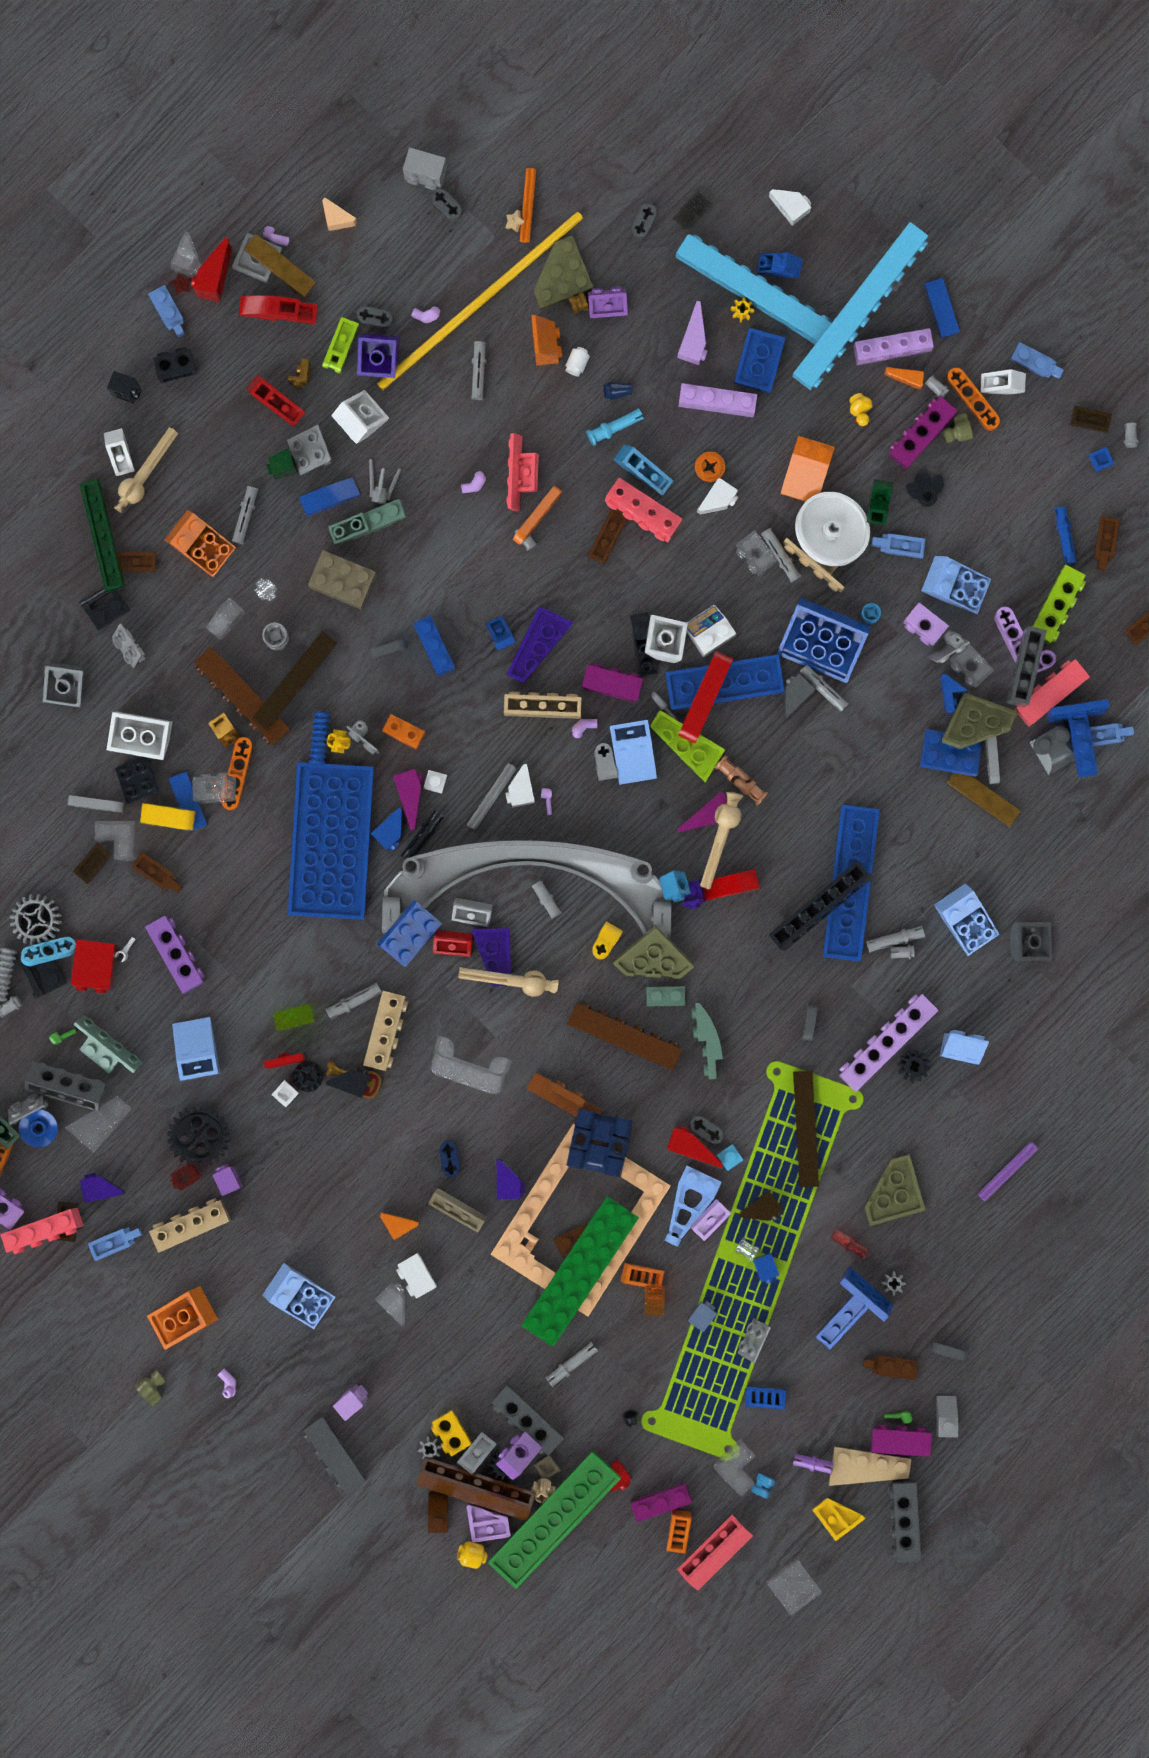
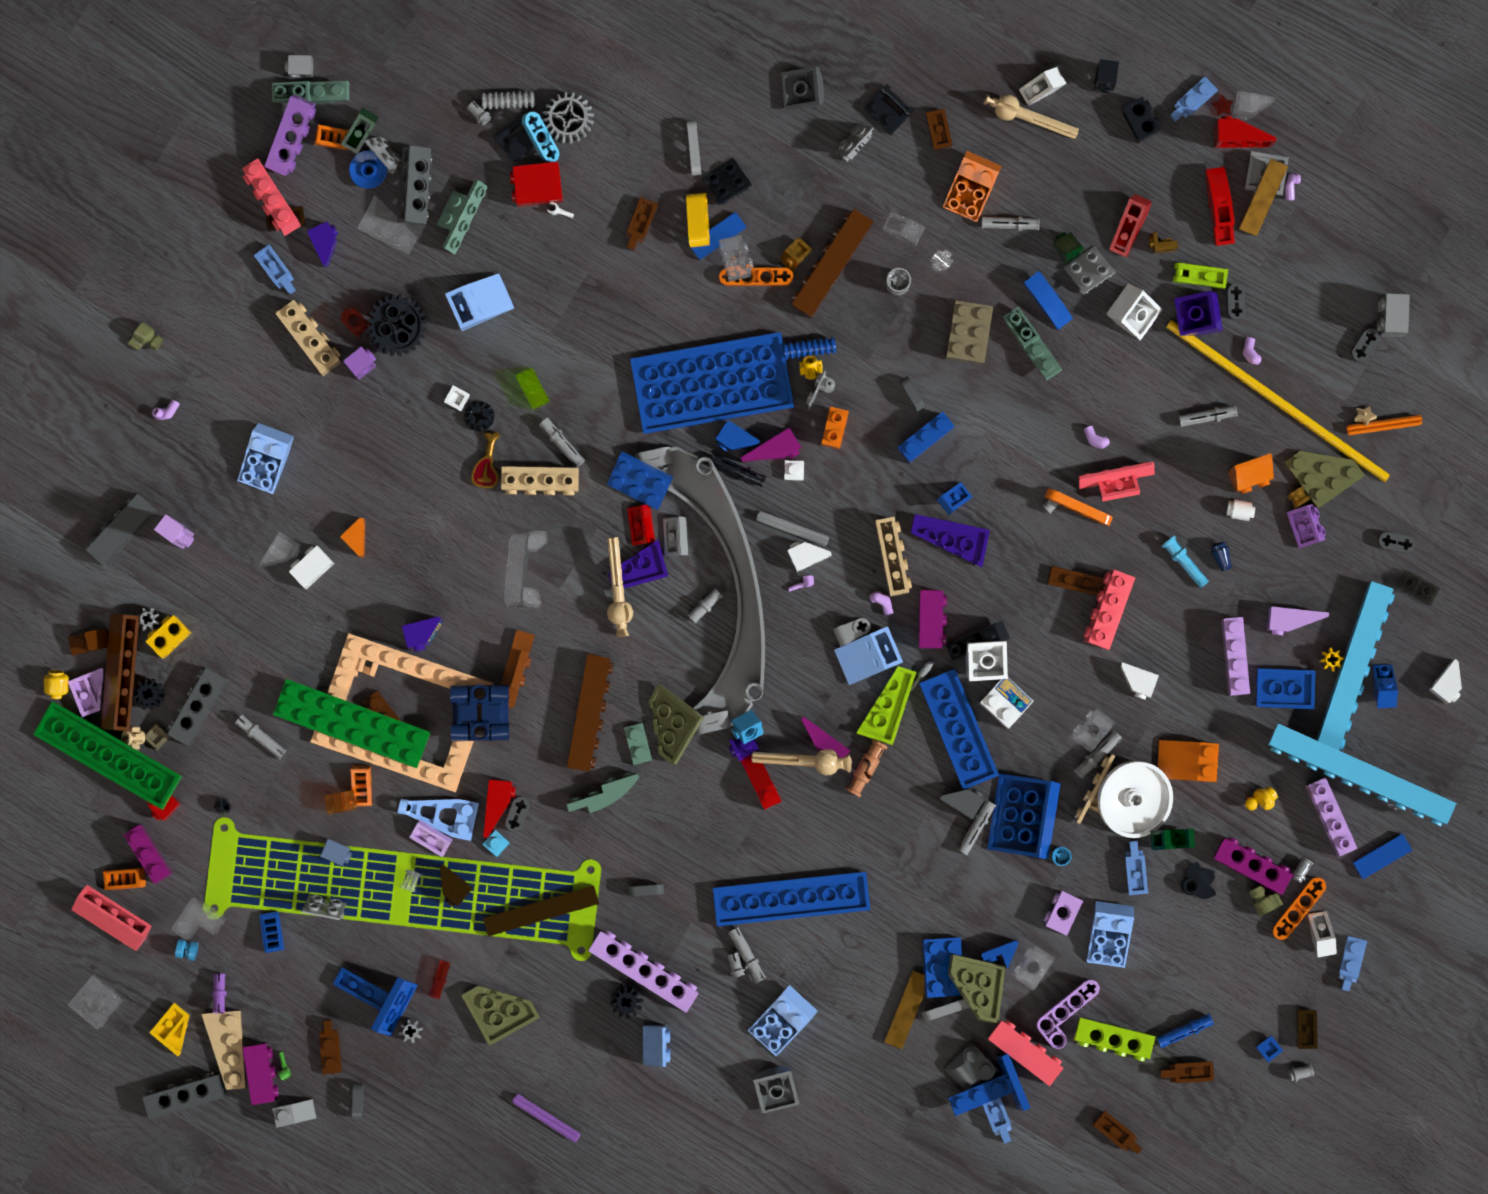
camera: 75 degrees right, 0 degrees up
(55, 1038) = (458, 166): bright green hand -> none
(92, 863) = (636, 159): dark brown plate -> none
(102, 535) = (956, 90): dark green plate -> none
(122, 834) = (670, 180): clear brick -> none
(139, 735) = (770, 173): white slope -> none
(156, 932) = (583, 236): medium lavender brick -> none
(182, 1317) = (219, 352): orange slope -> none
(284, 1059) = (489, 389): red plate -> none
(294, 681) = (859, 310): dark brown tile -> none
(337, 217) = (1325, 241): light nougat slope -> none
(351, 1082) = (482, 459): black slope -> none
(380, 495) = (1063, 348): light grey plant -> none
(444, 1159) = (432, 576): dark blue beam -> none
(457, 1210) = (383, 591): dark tan plate -> none
(476, 1453) = (154, 665): light grey plate -> none
(527, 1450) = (168, 712): medium lavender brick -> none
(608, 938) = (681, 673): yellow piece -> none
(643, 469) = (1149, 600): dark azure slope -> none
(705, 697) = (939, 713): red beam -> none
(711, 458) = (1177, 664): orange gear -> none
(766, 1268) = (396, 903): blue brick -> none
(821, 906) = (761, 874): black brick -> none
(910, 377) = (1304, 842): orange slope -> none
(954, 644) = (1049, 946): light grey hinge -> none
(1026, 666) = (1043, 1020): dark grey brick -> none

